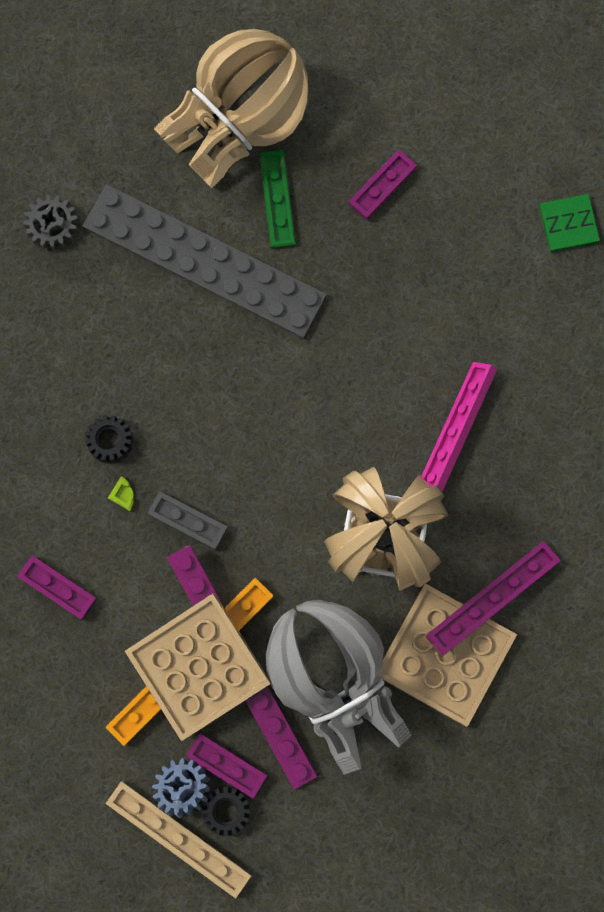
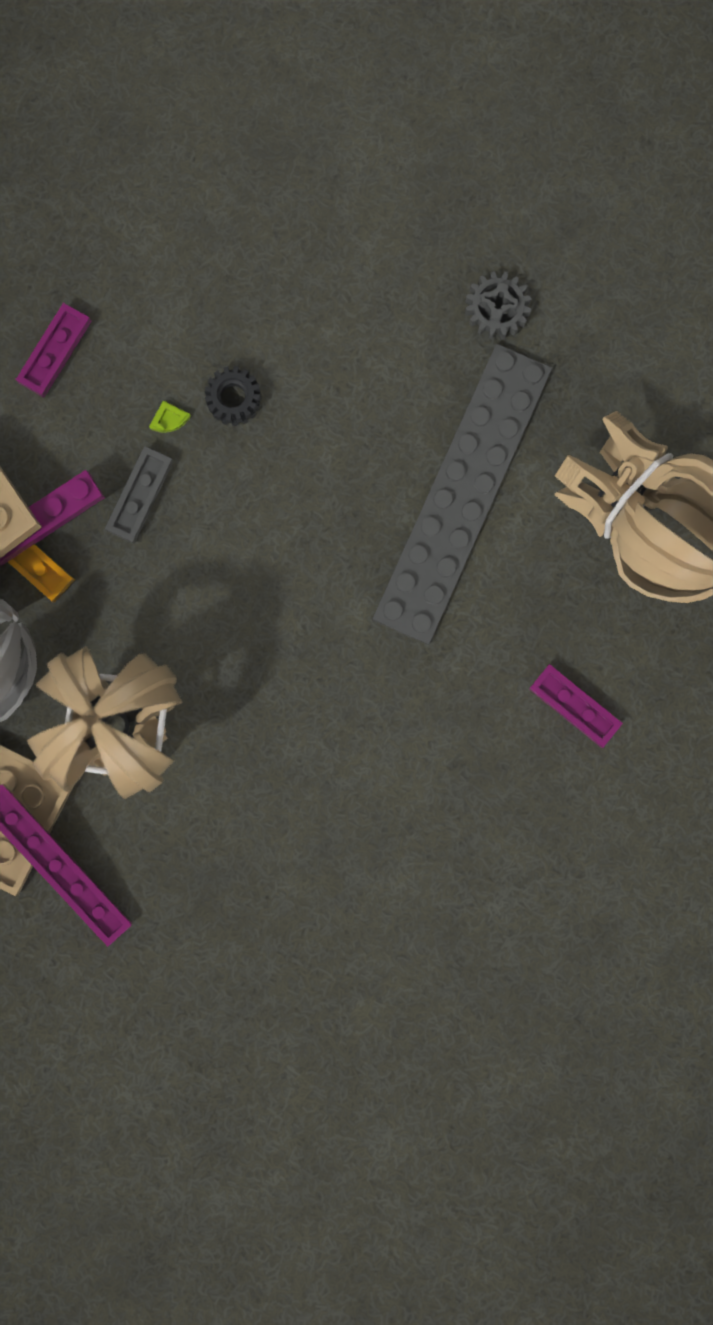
camera: 85 degrees right, 5 degrees up
(277, 199) = (548, 577): green tile -> none
(458, 424) = (260, 809): dark pink plate -> none
(569, 223) = (542, 945): green tile -> none

